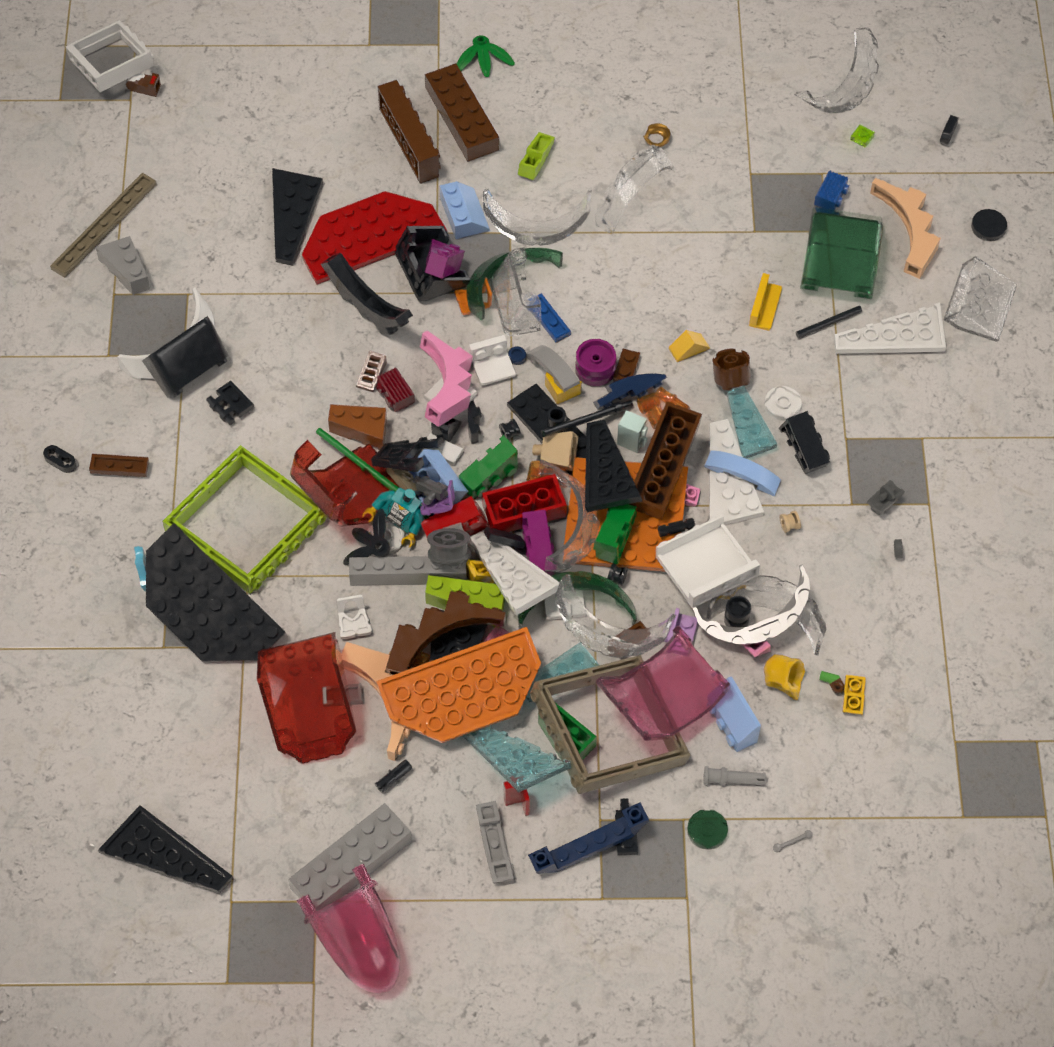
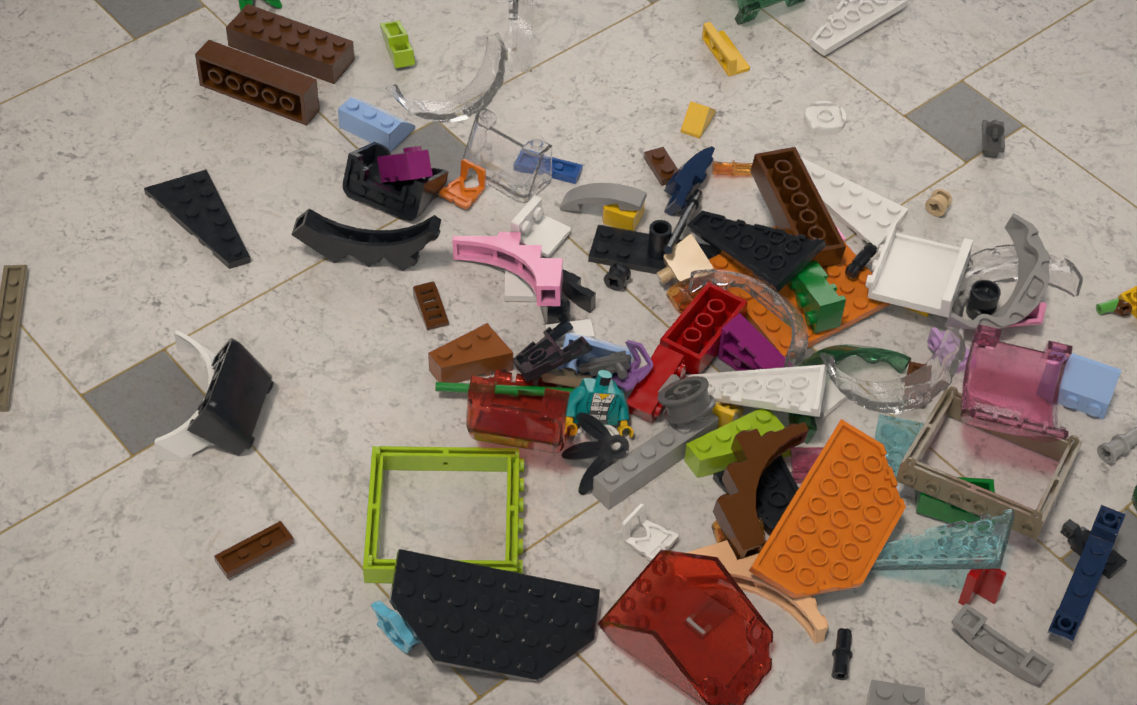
camera: 40 degrees left, 10 degrees down
(57, 461) = (178, 585): black beam -> none
(124, 263) = (71, 355): light grey wedge -> none
(234, 398) = (315, 412): black plate -> none
(365, 231) = (293, 181): red plate -> none
(395, 389) = (472, 306): dark red brick -> none
(488, 268) = (461, 172): clear green windscreen -> none
(490, 470) = (640, 312): green wedge -> none
(504, 538) = (717, 367): black tile -> none
(517, 355) = (554, 211): dark blue tile -> none
(595, 362) = (638, 169): magenta wheel -> none
(615, 574) = (846, 335): black wheel -> none
(632, 431) = (734, 203): light aqua brick -> none
(651, 407) = (720, 182): clear orange piece -> none
(731, 368) = (761, 110): reddish brown brick -> none
(744, 469) = (856, 182): light blue slope -> none
(750, 427) = (818, 148): clear light blue wing -> none
(784, 674) = (1076, 324): yellow piece -> none
(806, 442) = (882, 132): black wedge -> none
(829, 321) = (791, 35): black bar -> none
(898, 548) = (1045, 170): dark grey tile -> none

